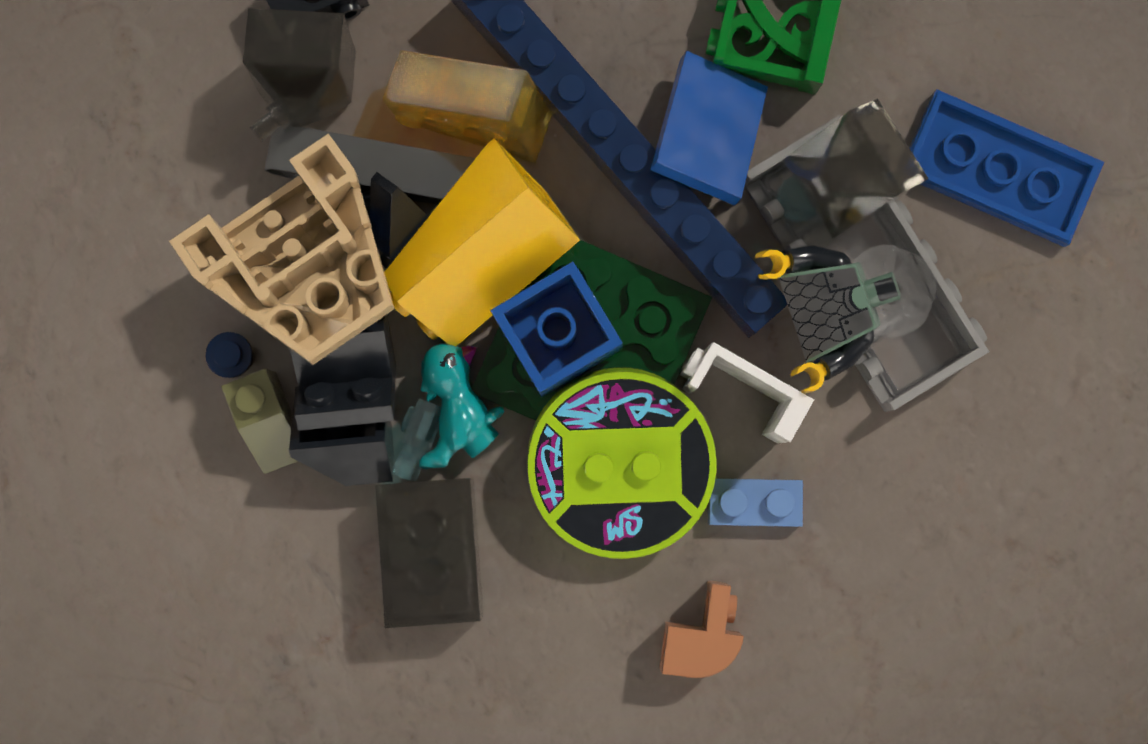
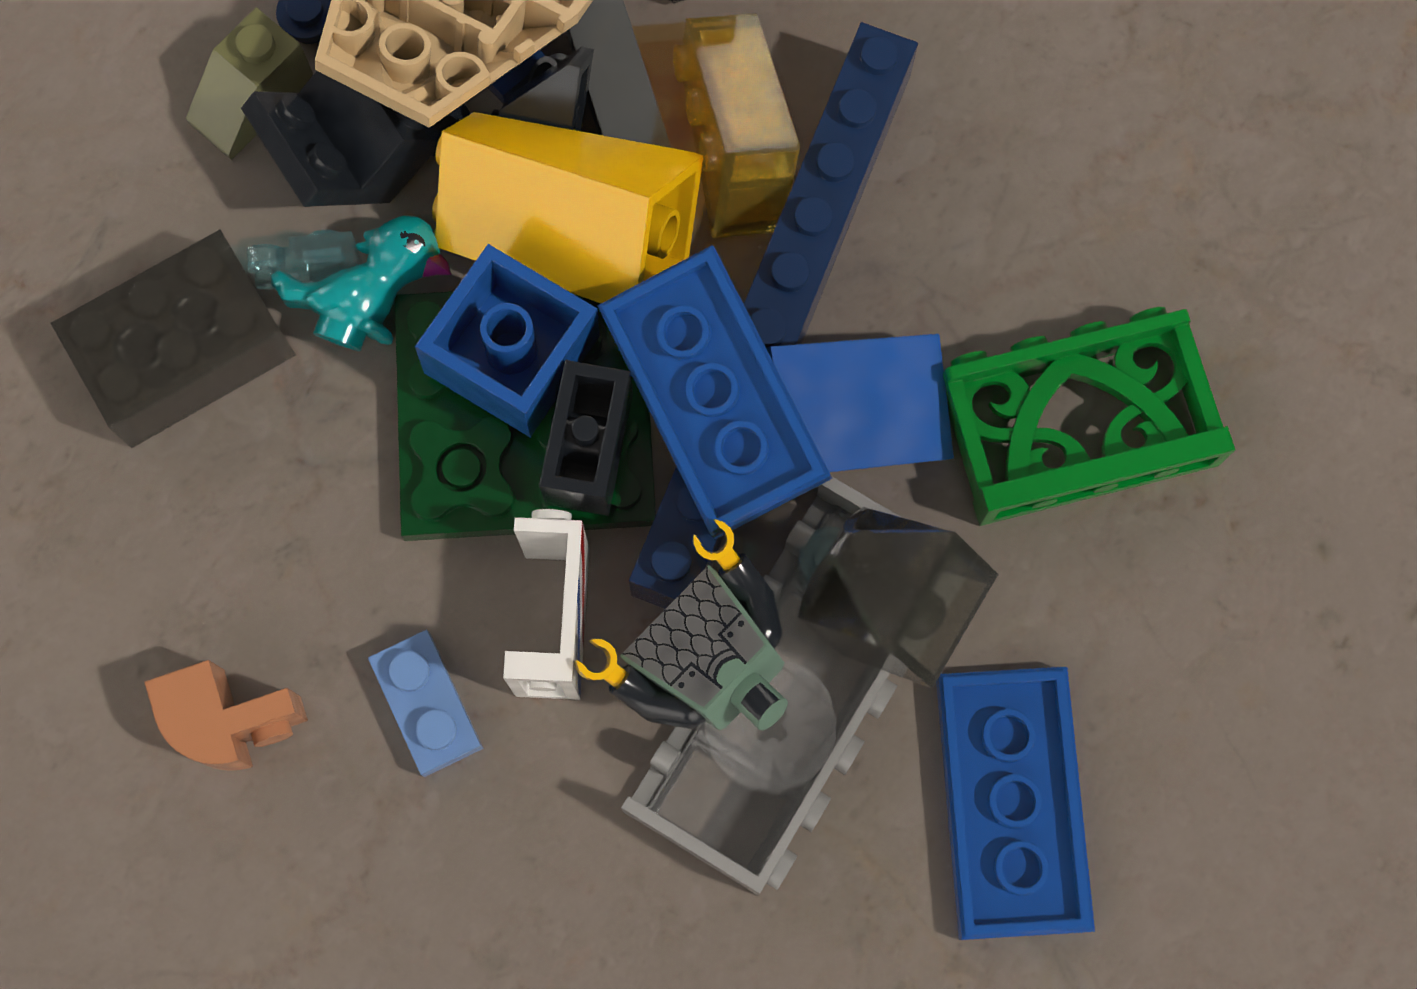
camera: 65 degrees right, 10 degrees down
(346, 453) = (250, 190): black slope -> none
(621, 463) = (388, 506): brick -> none
(650, 311) = (586, 438): none -> black brick
(667, 214) = (714, 392): none -> blue tile

